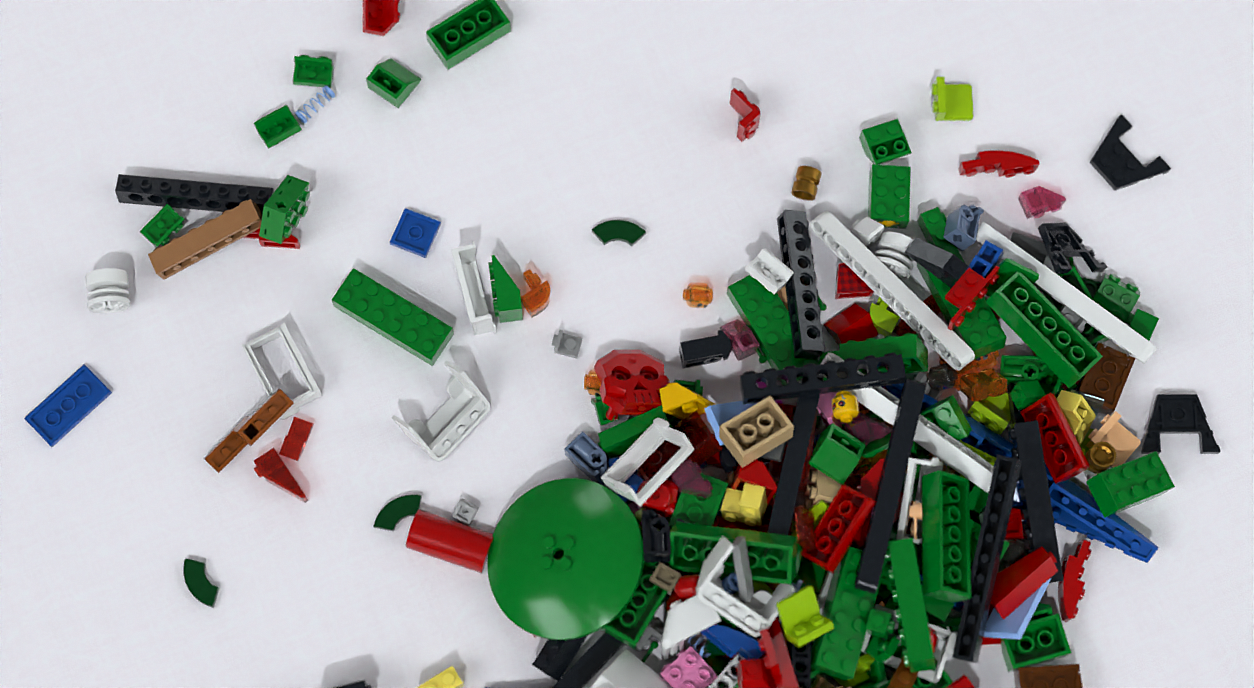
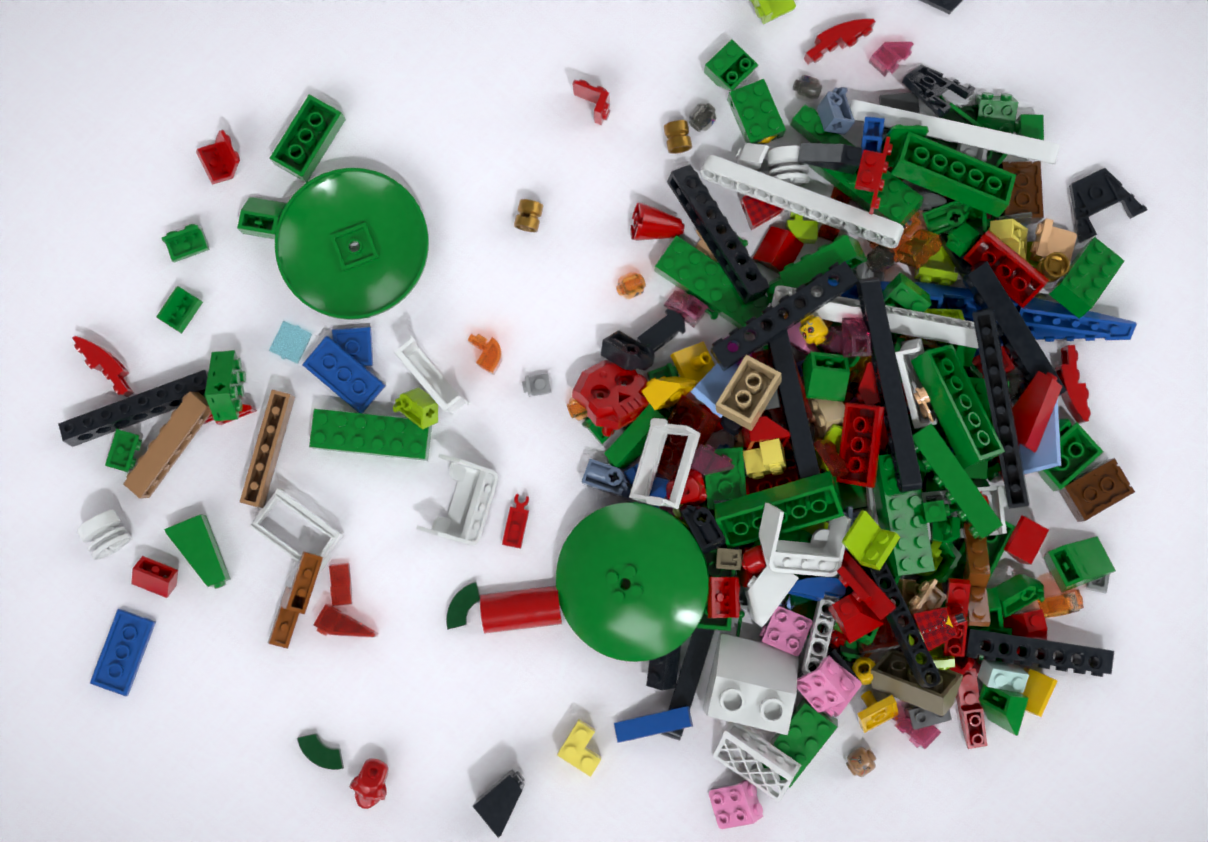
camera: 20 degrees left, 10 degrees up
(132, 350) = (154, 576): none -> red brick
(186, 141) = (100, 359): none -> red slope
(186, 344) = (200, 549): none -> green slope
(230, 632) = (370, 783): none -> red head
(292, 285) = (267, 449): none -> medium nougat brick
(328, 91) = (210, 254): light blue piece -> none
(361, 202) = (290, 342): none -> clear light blue piece
(395, 252) = (344, 375): none -> blue tile
(448, 310) = (418, 407): none -> lime piece
(454, 108) = (329, 217): none -> green dish
(465, 512) = (521, 578): light grey tile -> none
(485, 460) = (516, 524): none -> red plate
(508, 301) = (466, 371): green slope -> none
(618, 231) = (532, 259): dark green tile -> none
(635, 188) = (529, 209): none -> pearl gold wheel
(643, 609) = (723, 597): none -> red bracket
(664, 351) = (627, 352): none -> black piece
(721, 388) = (693, 361): none -> yellow tile
(730, 583) = (791, 538): medium blue bush -> none
(741, 246) = (654, 224): none -> red cone
(743, 569) = (796, 523): light grey tile -> none
(769, 271) = (686, 235): white bracket -> none
(837, 176) = (702, 117): none -> clear smoke head
(879, 430) = (855, 338): none -> clear pink slope
(947, 195) = (807, 88): none -> clear smoke head
(1014, 346) = (931, 201): none -> dark grey dish

